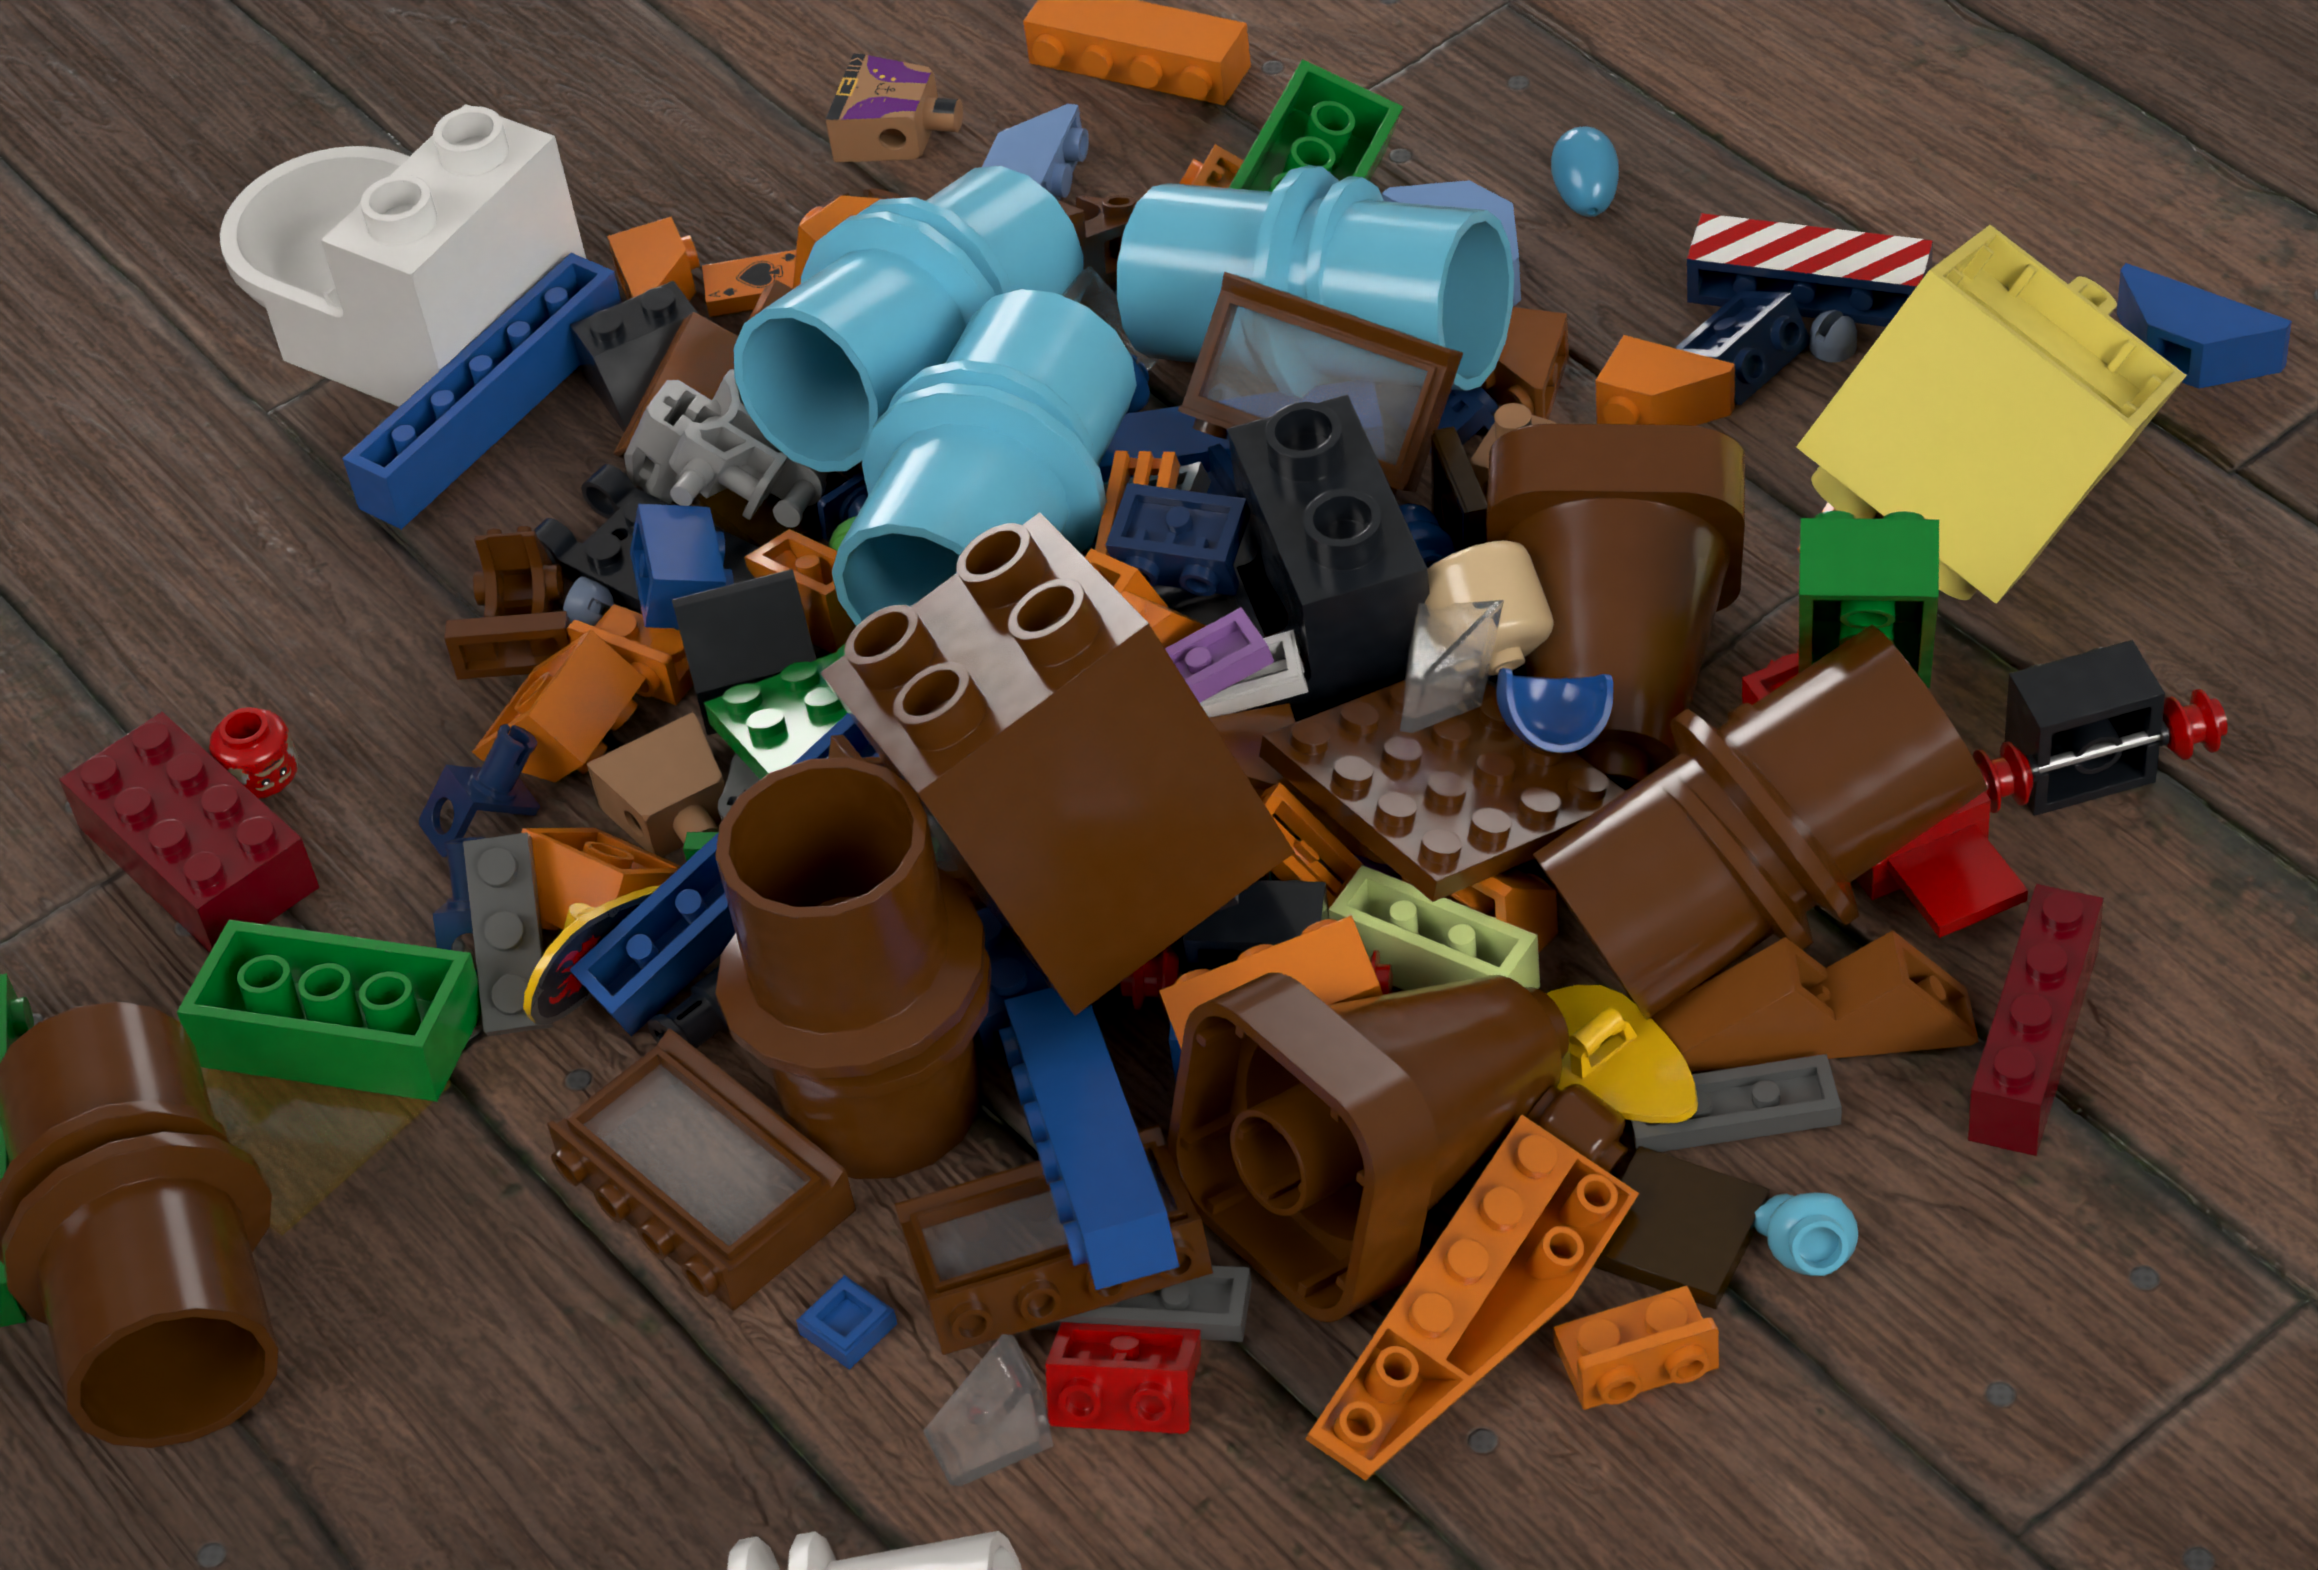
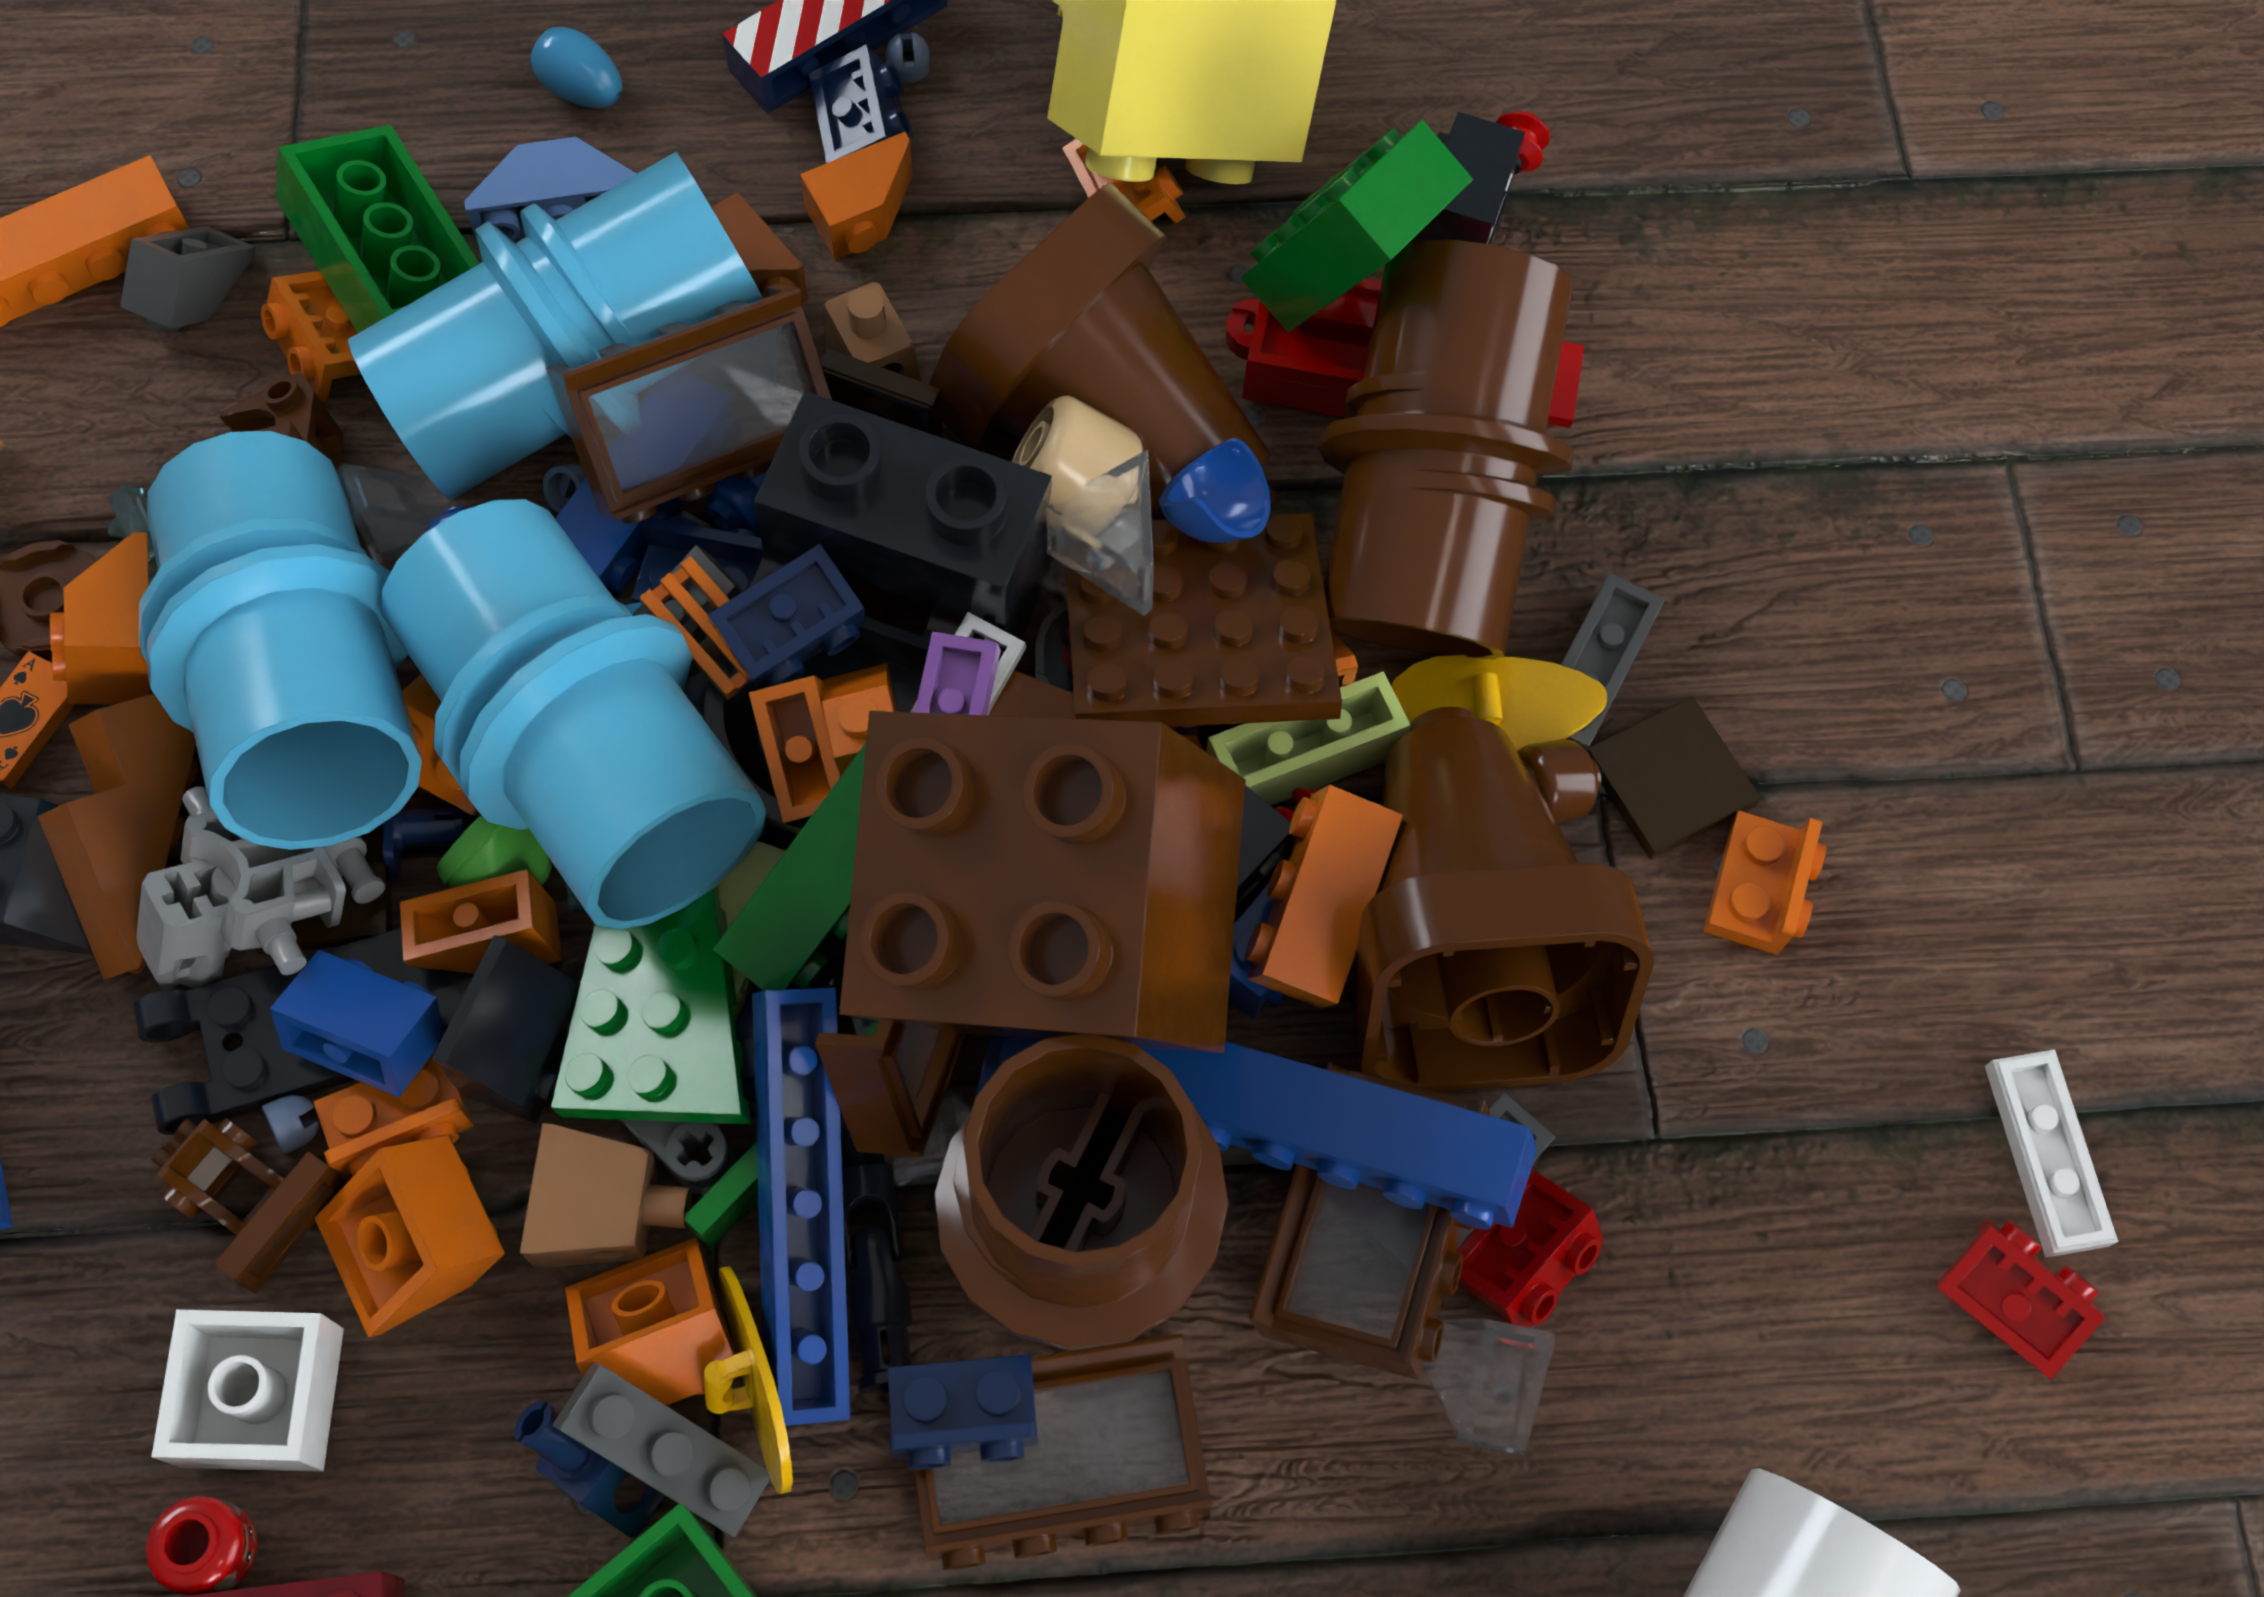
camera: 65 degrees left, 20 degrees up
(377, 702) = (248, 1390): none -> white brick
(484, 788) = (446, 1364): dark blue bracket -> none
(668, 1068) = (962, 1410): none -> dark blue bracket
(846, 1322) = (1300, 1430): blue tile -> none
(1044, 148) = (122, 419): medium blue slope -> none
(1178, 110) = (182, 275): none -> dark grey slope
(1479, 1294) = (1691, 1016): orange wedge -> none
(1795, 1008) = (1574, 548): dark orange slope -> none
(1808, 1231) = (1760, 703): medium azure animal -> none
(2035, 1020) = (1683, 427): dark red brick -> none

